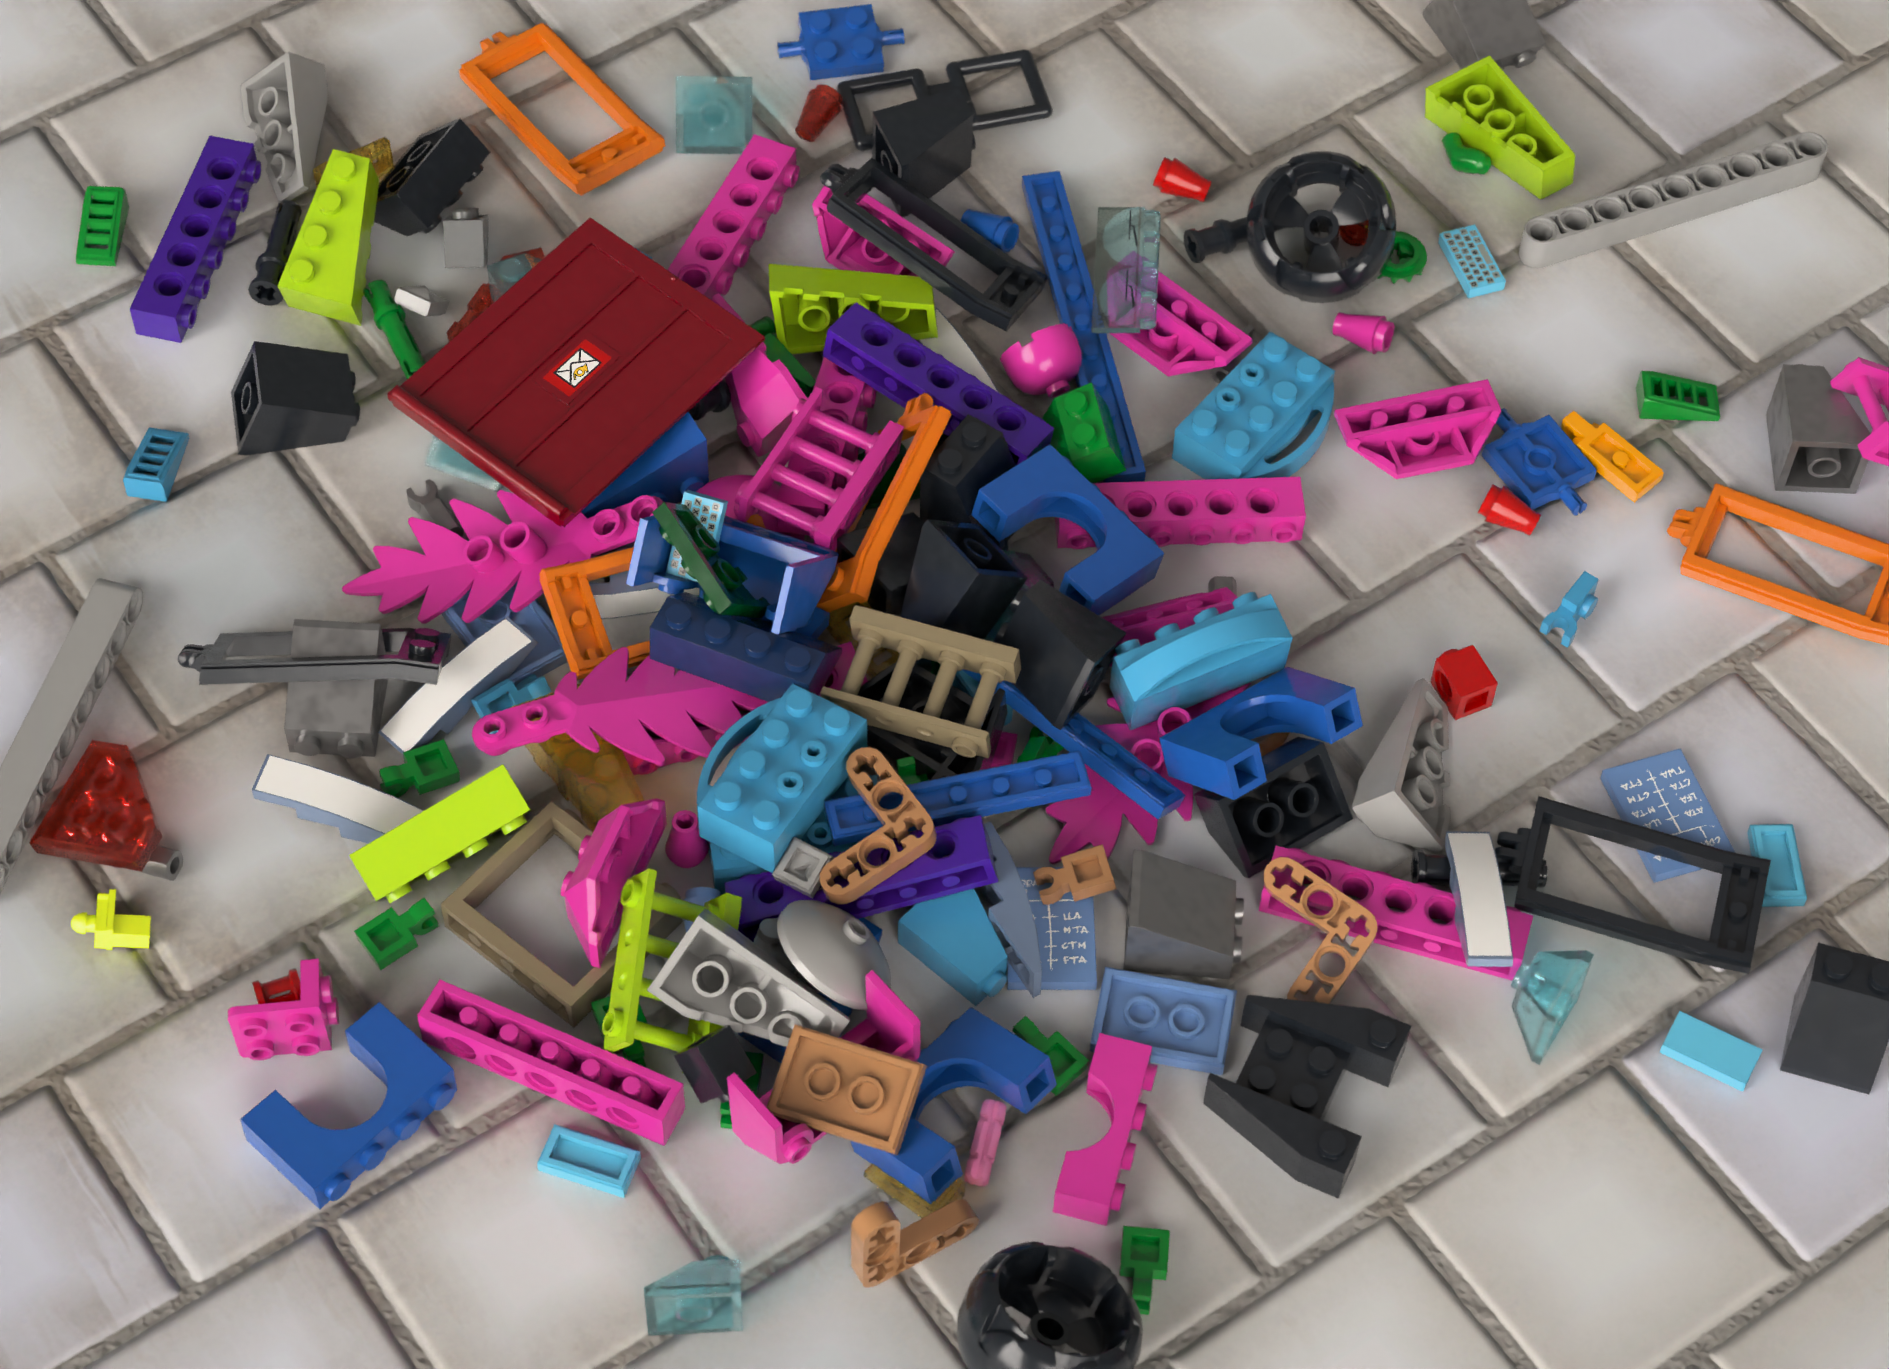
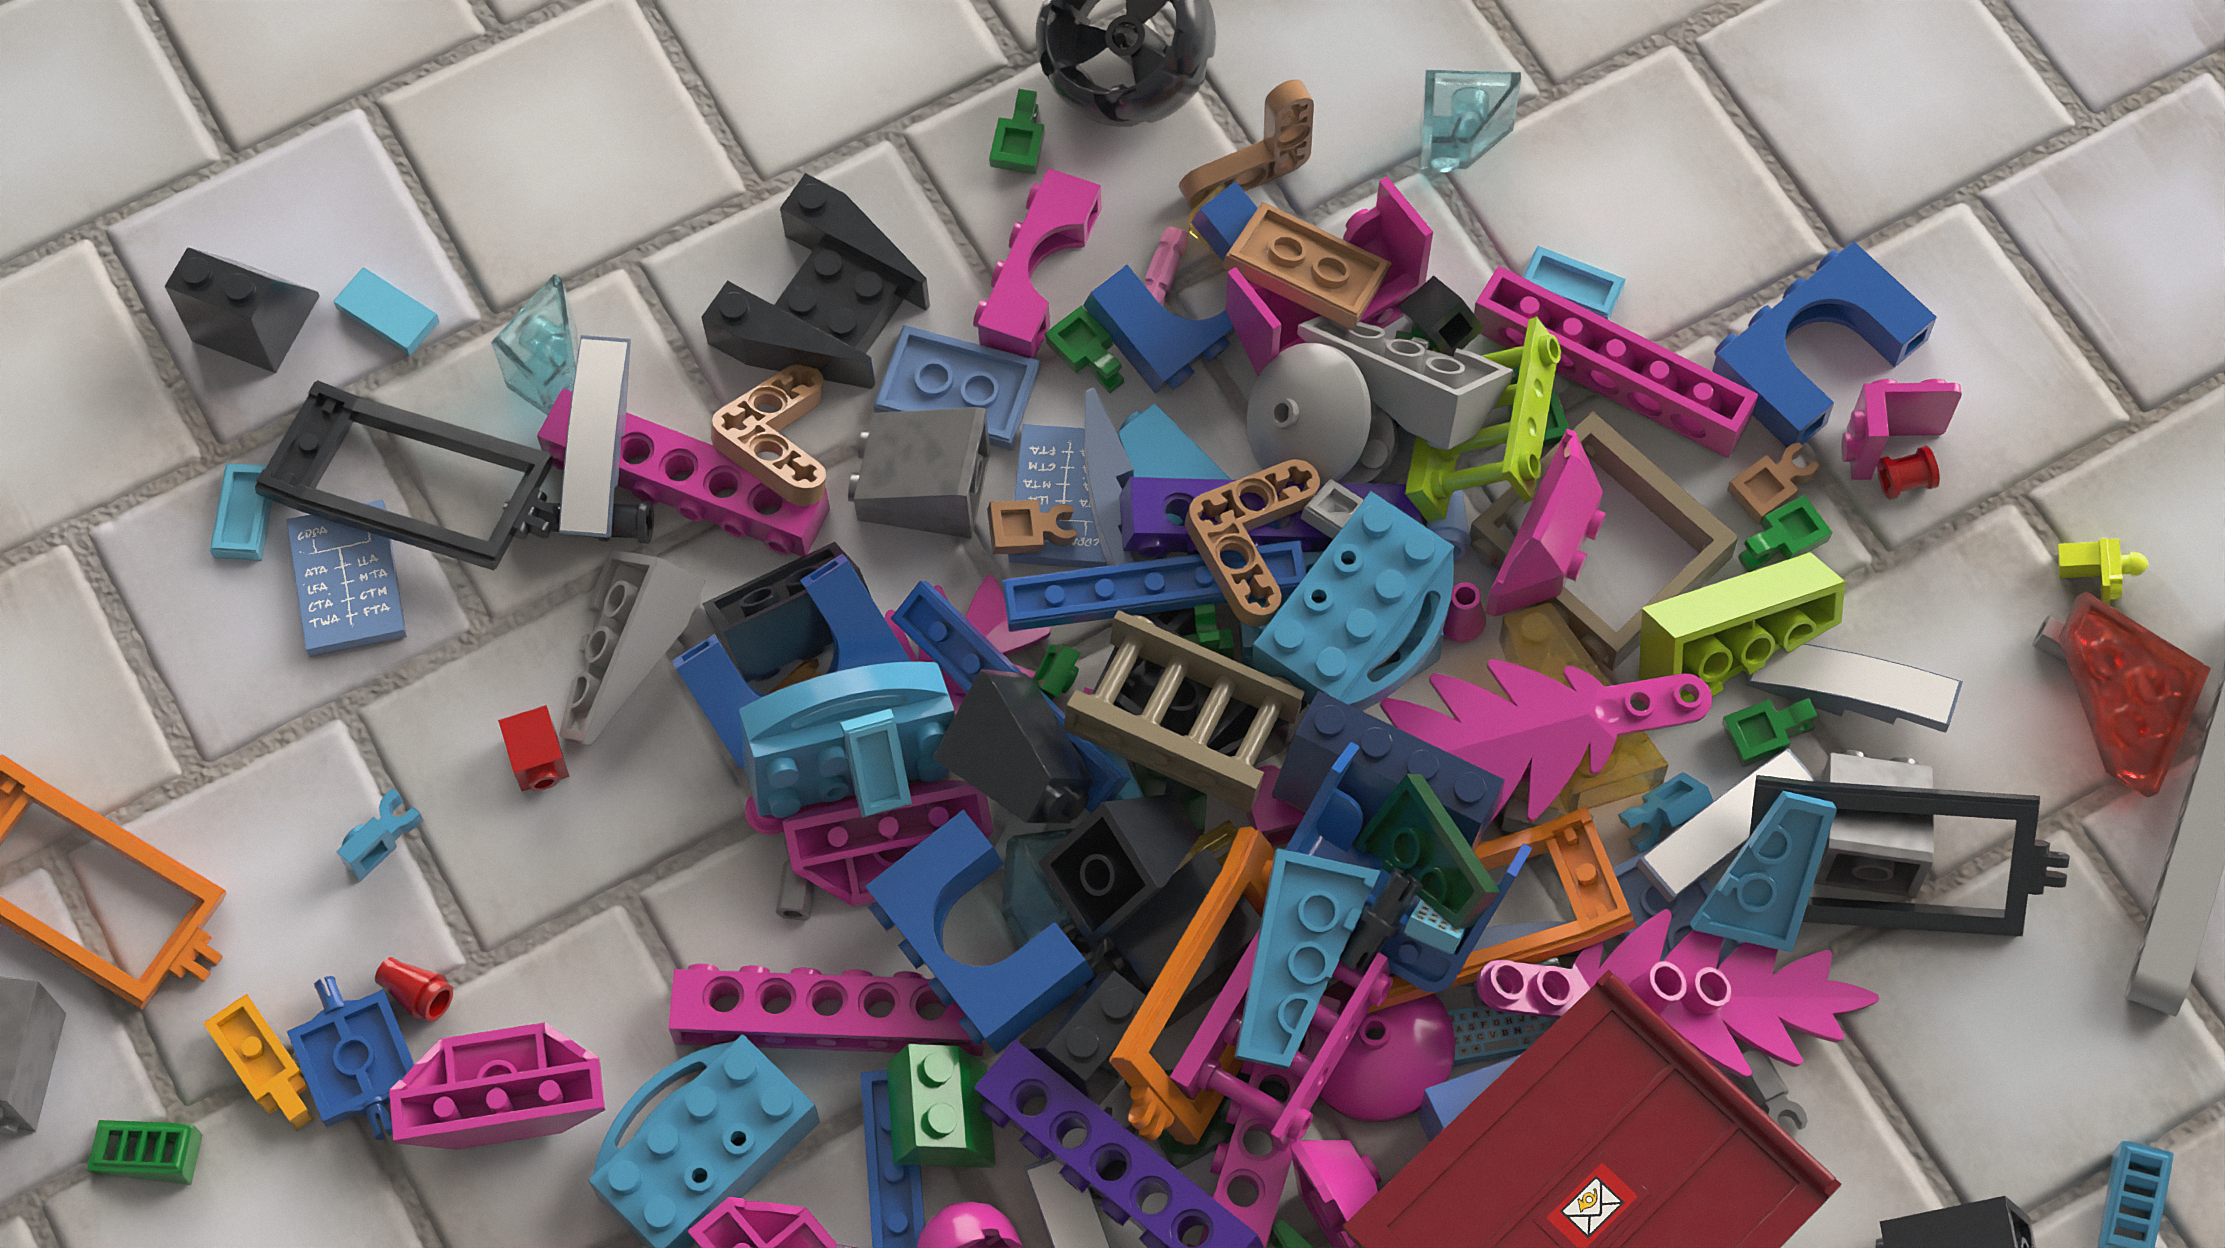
camera: 170 degrees left, 10 degrees up
(407, 974) = (1769, 485): none -> medium nougat plate
(429, 613) = (1772, 876): none -> dark azure wing
(746, 516) = (1380, 921): none -> black pin
(812, 496) = (1299, 943): none -> dark azure wing
(1170, 613) = (876, 763): none -> medium azure tile

